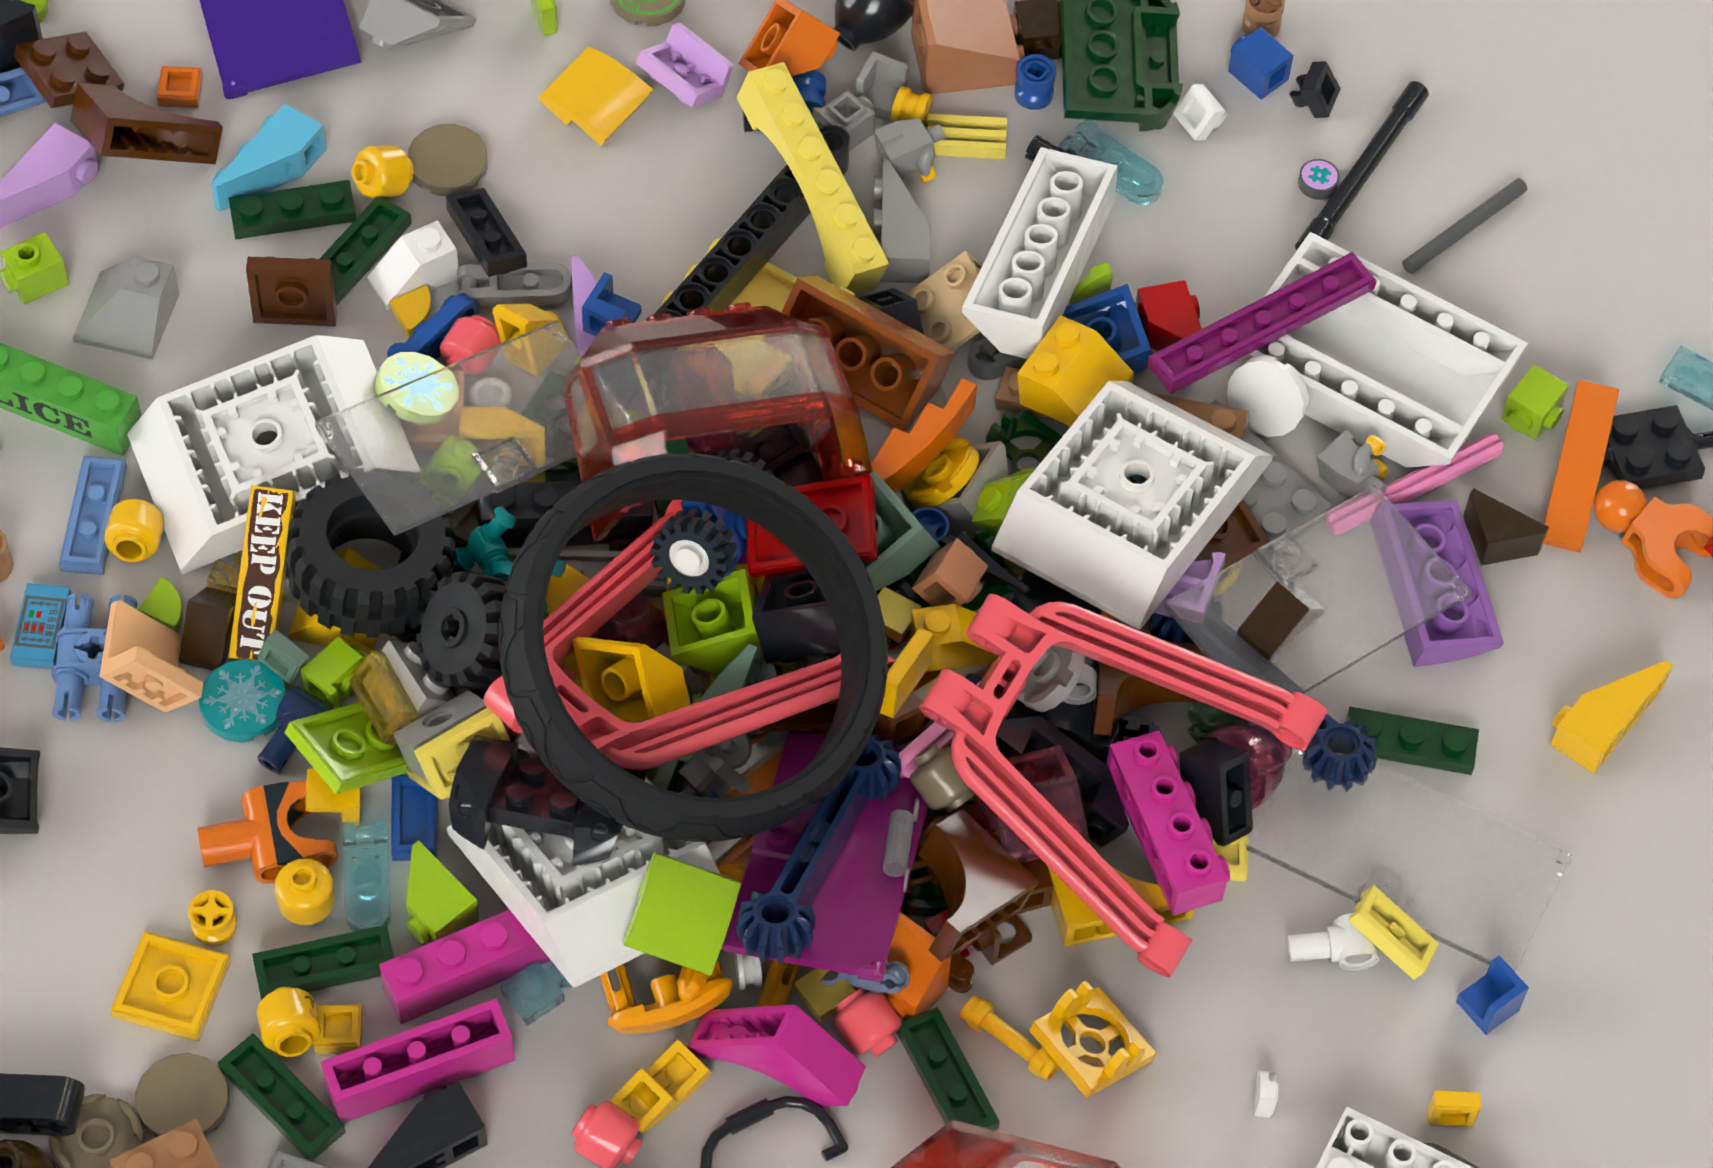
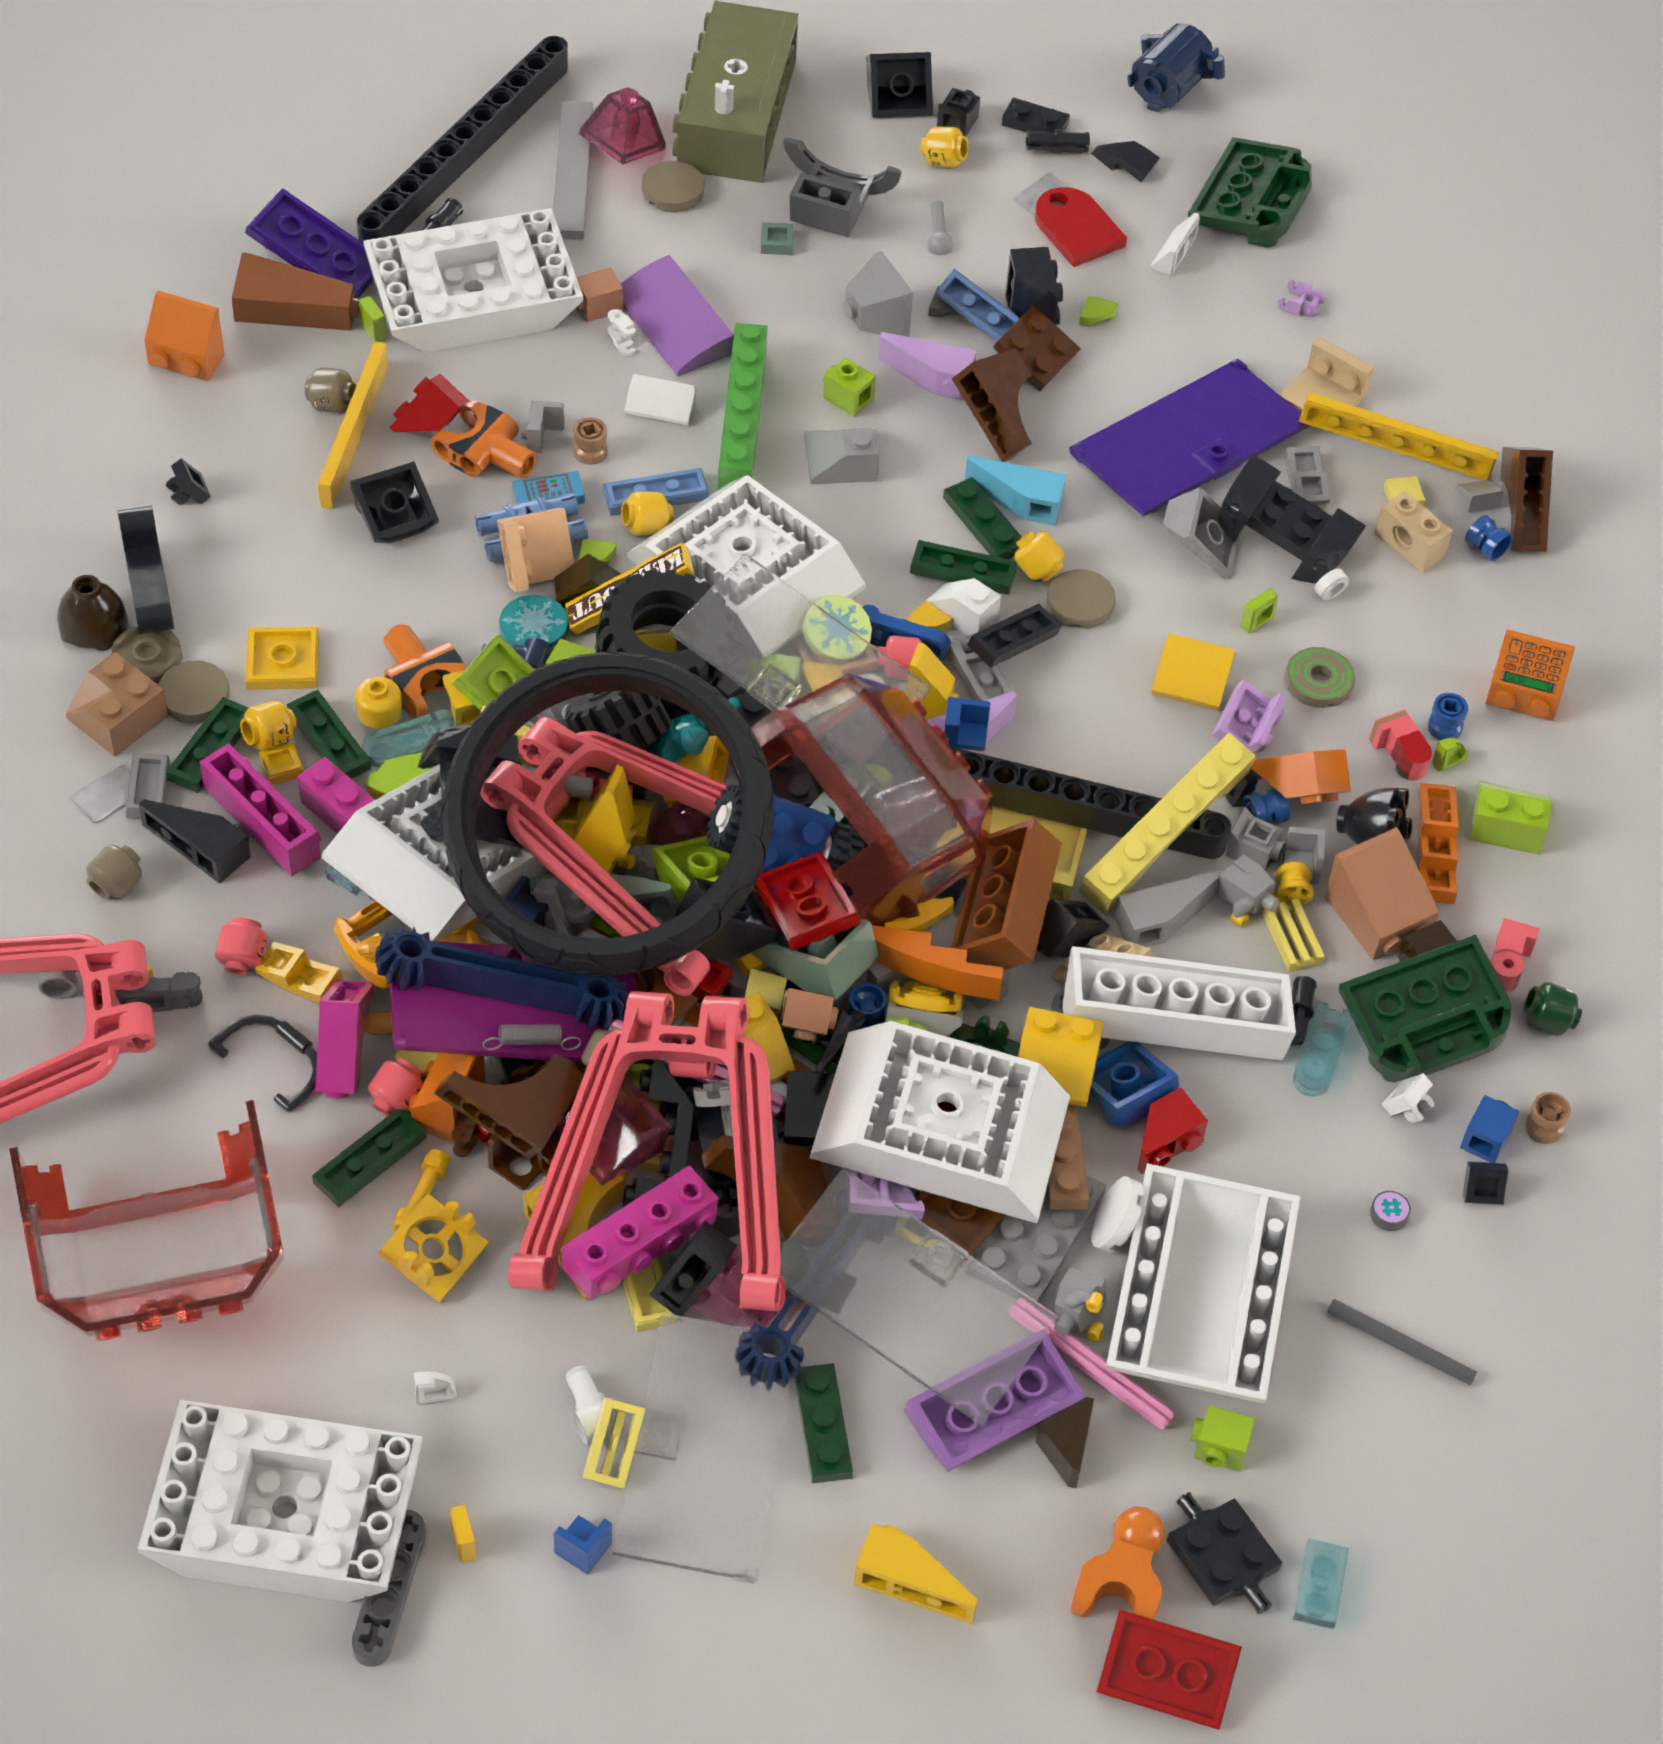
camera: 70 degrees right, 5 degrees down
(179, 87) = (1063, 420): orange tile -> none
(204, 910) = (348, 654): yellow wheel -> none
(283, 656) = (568, 622): sand green tile -> none
(291, 291) = (894, 531): reddish brown plate -> none
(682, 913) = (401, 895): lime slope -> none
(894, 980) = (420, 1069): sand blue arm -> none
(907, 671) = (686, 992): yellow tile -> none
(1035, 81) = (1371, 956): blue wheel -> none
(1094, 284) = (1180, 1062): lime tile -> none
(1261, 322) = (1179, 1180): magenta tile -> none
(1279, 619) = (868, 1258): dark brown slope -> none
(1402, 112) = (1501, 1259): black piece -> none
(1579, 465) = (1169, 1487): orange slope -> none

